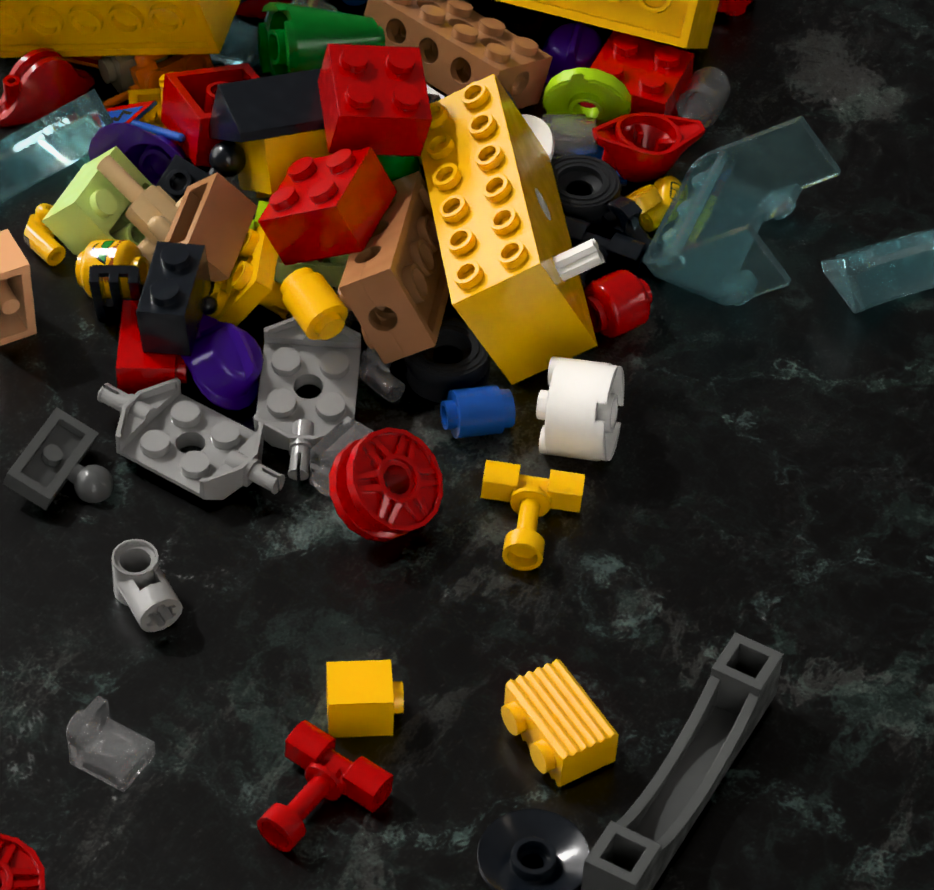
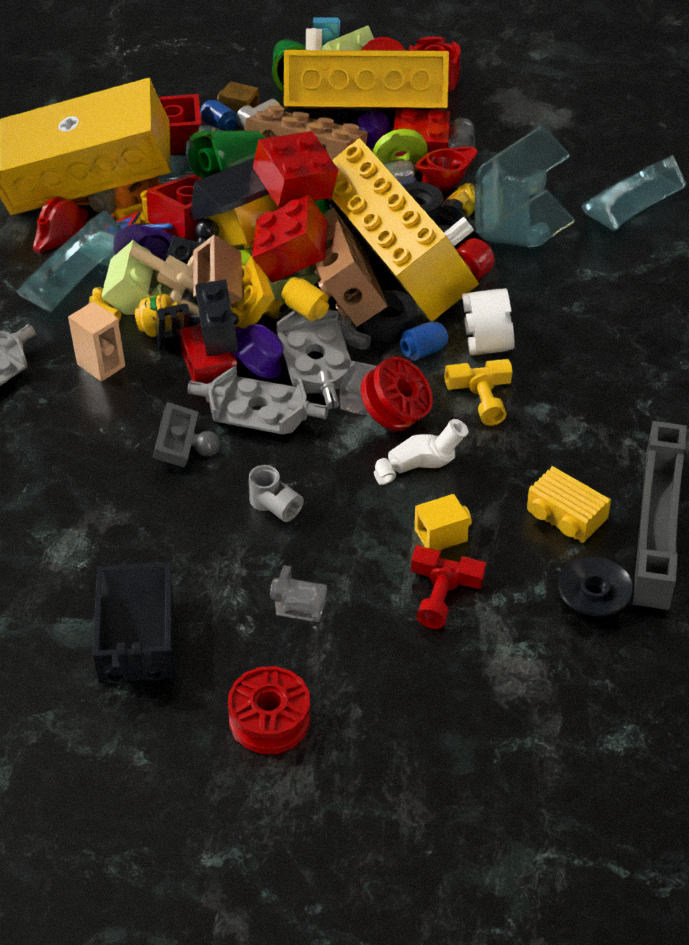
camera: 15 degrees left, 0 degrees up
(385, 581) = (421, 451): none -> white arm

